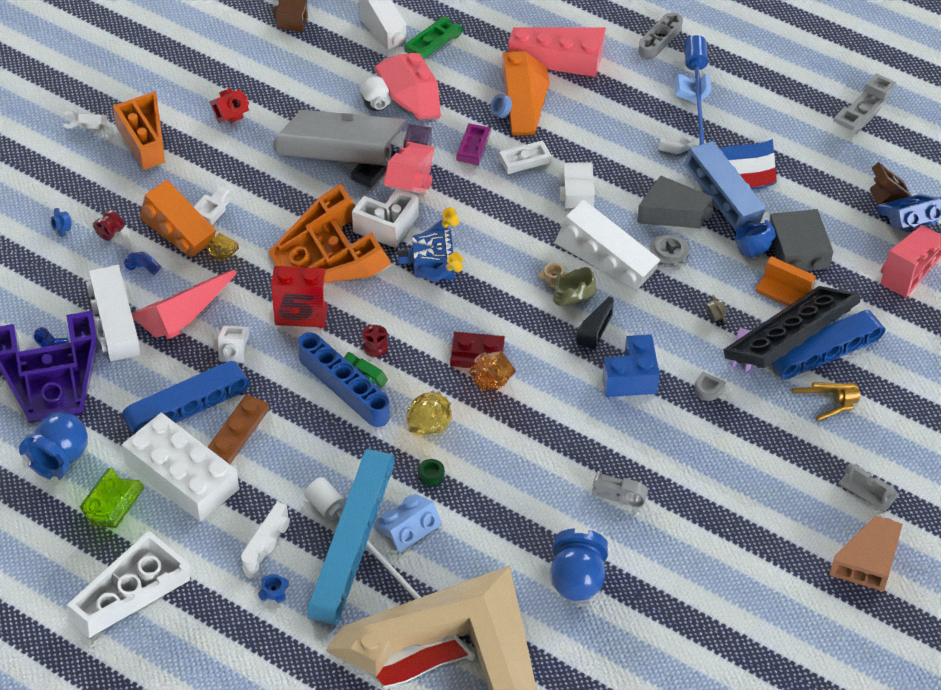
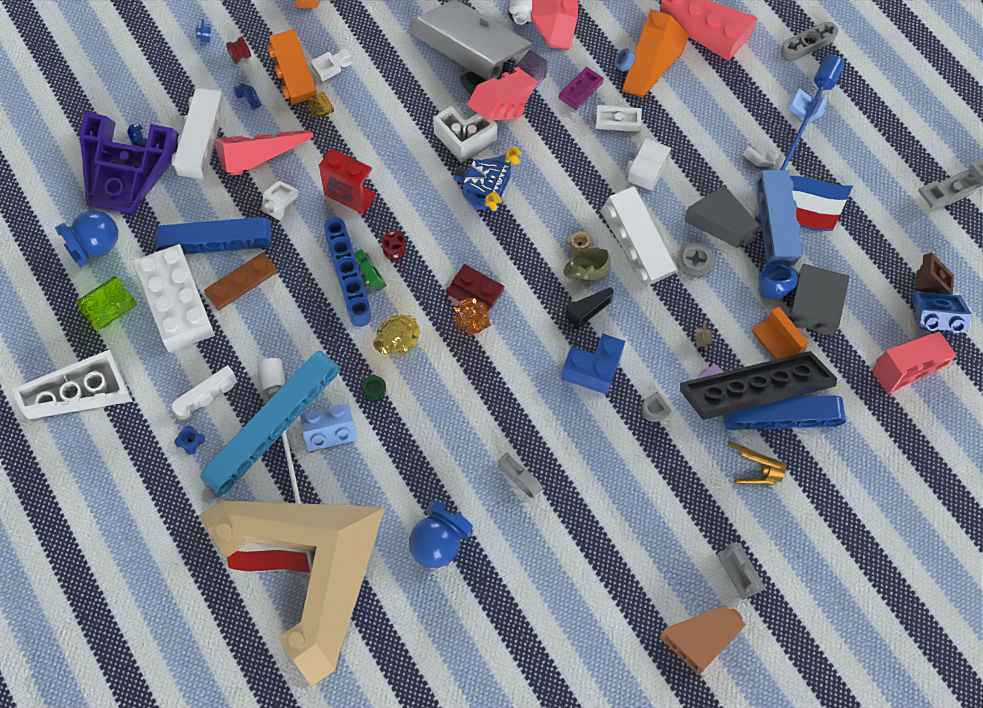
camera: 25 degrees right, 15 degrees up
(320, 242) = (398, 136): orange wedge -> none

